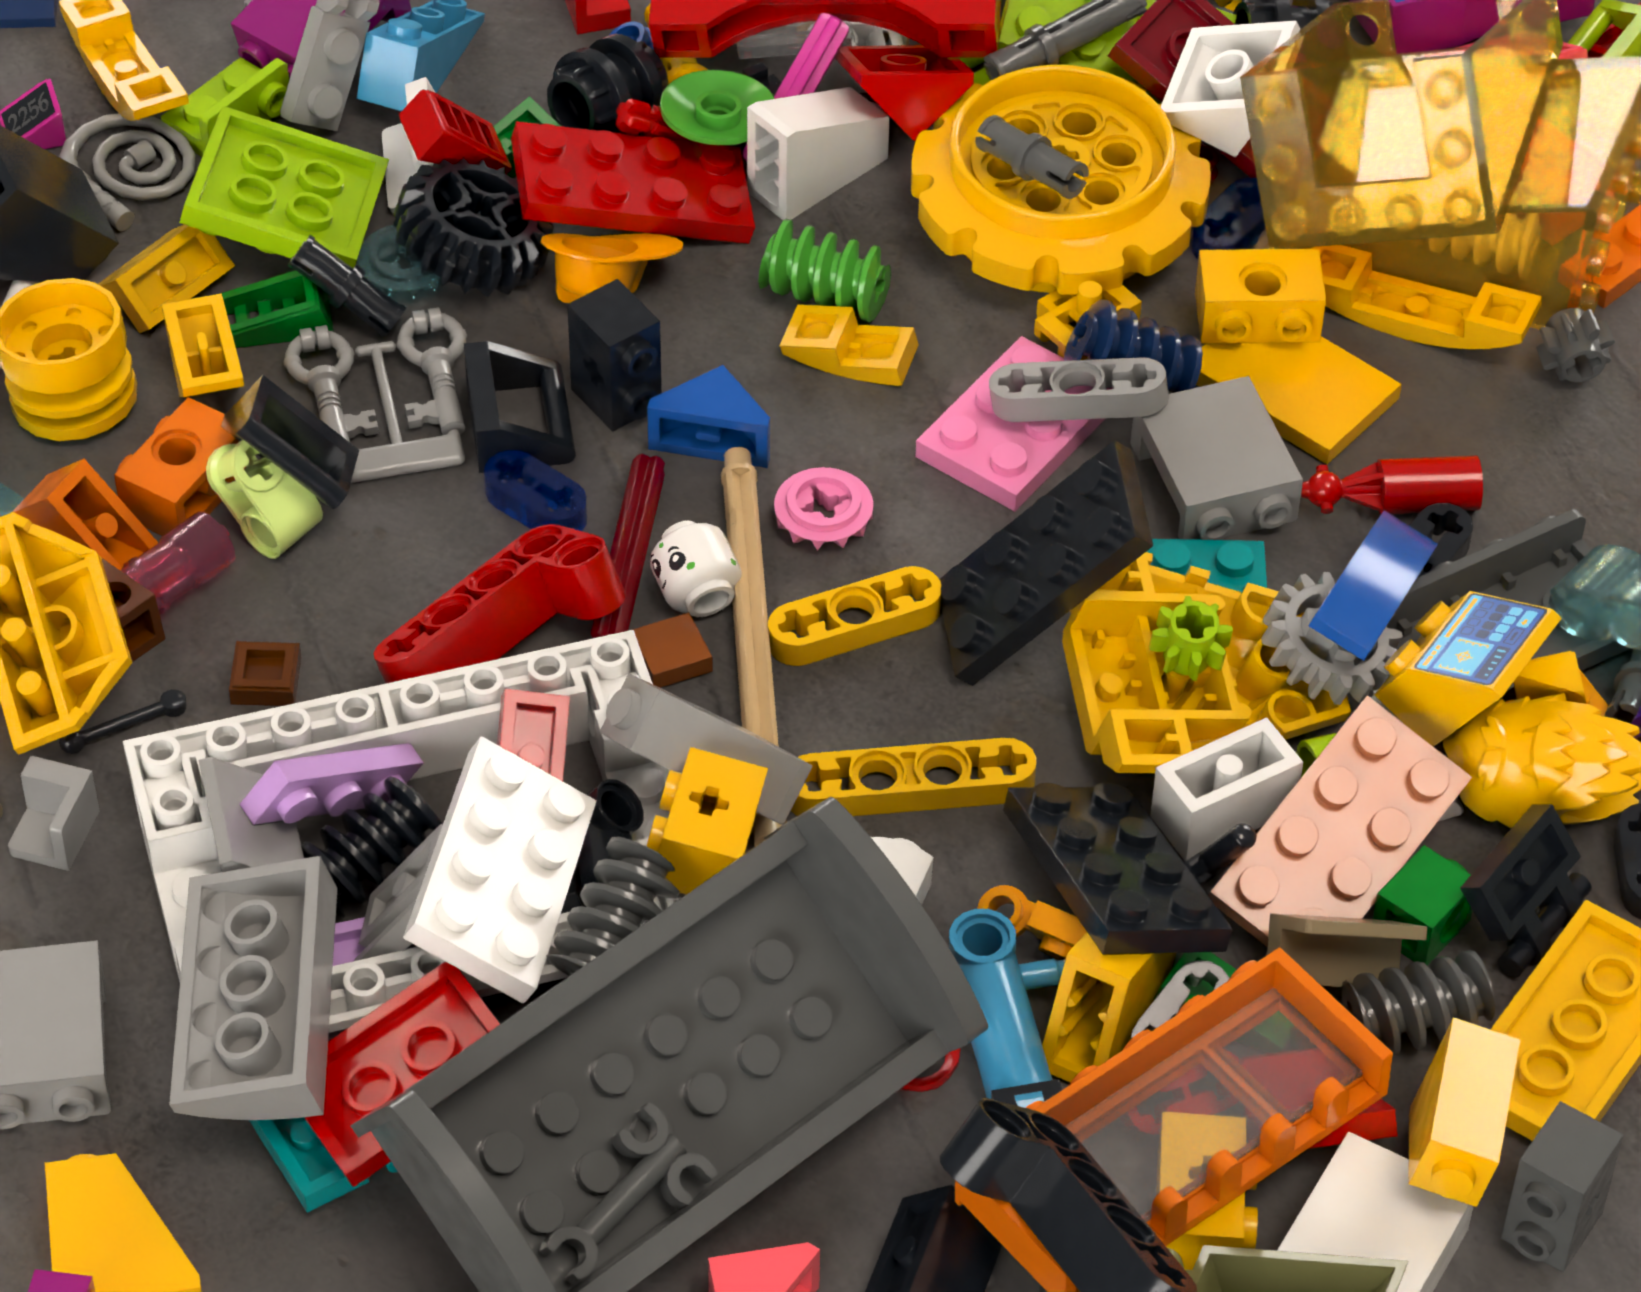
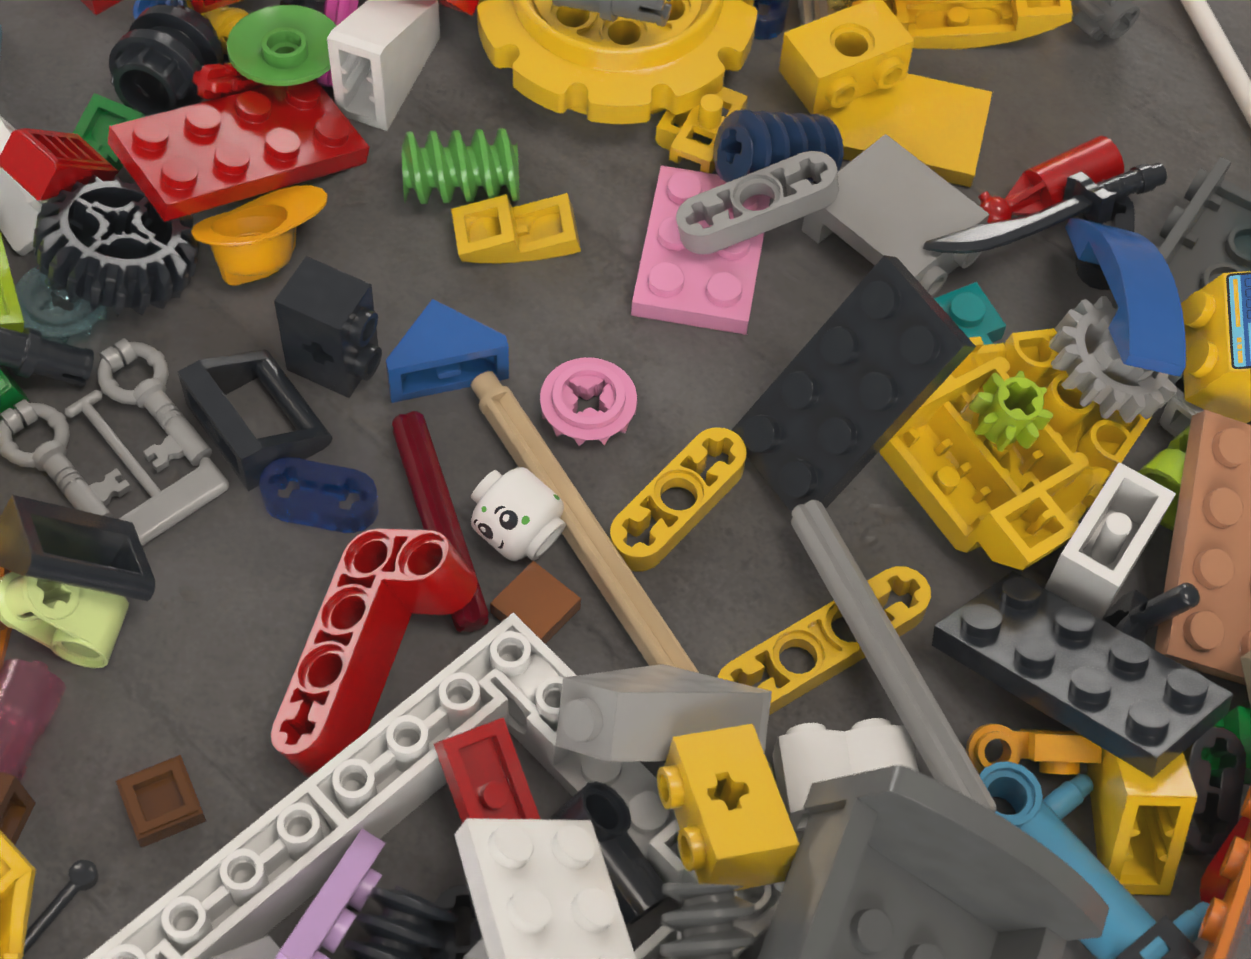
camera: 30 degrees left, 10 degrees up
(948, 792) = (887, 654): none -> light grey axle
(1412, 499) = (1080, 196): none -> black sword

